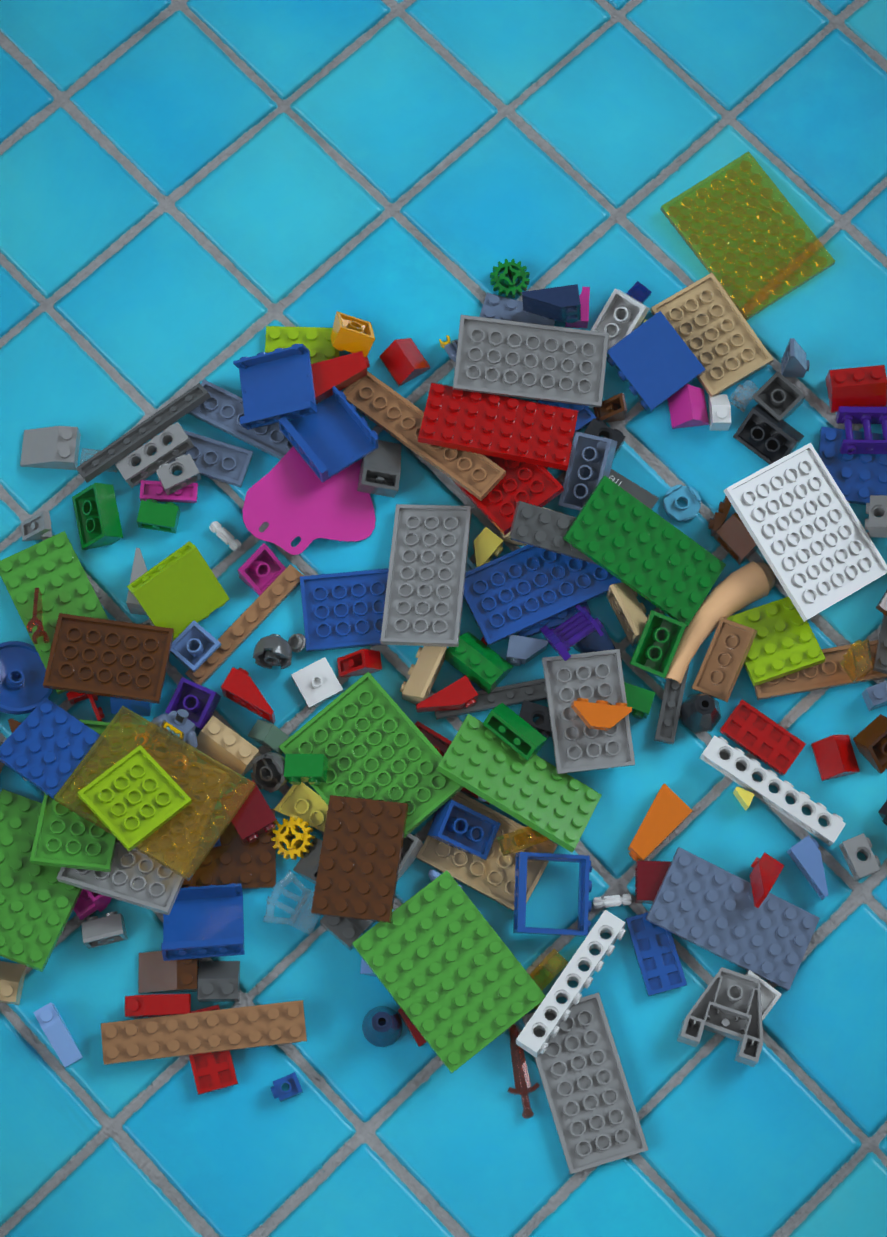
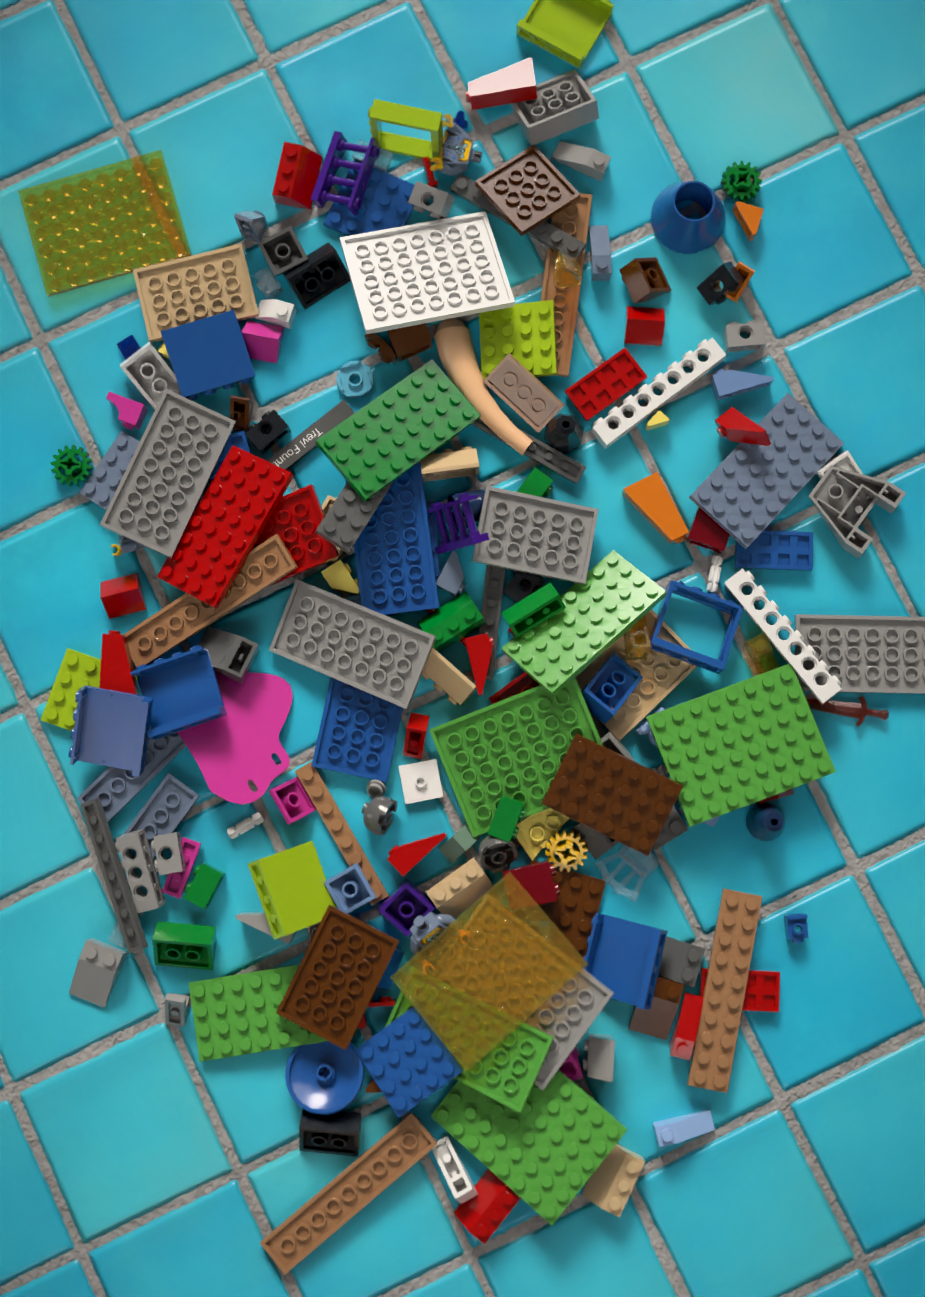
camera: 65 degrees left, 10 degrees up
(37, 619) = (275, 1036): clear red flag -> none
(134, 798) = (492, 993): lime plate -> none
(352, 334) = (79, 638): light orange slope -> none
(554, 303) = (118, 428): dark blue slope -> none
(588, 463) = (298, 455): sand blue slope -> none
(600, 714) = (545, 524): orange slope -> none
(658, 644) = (491, 448): green slope -> none

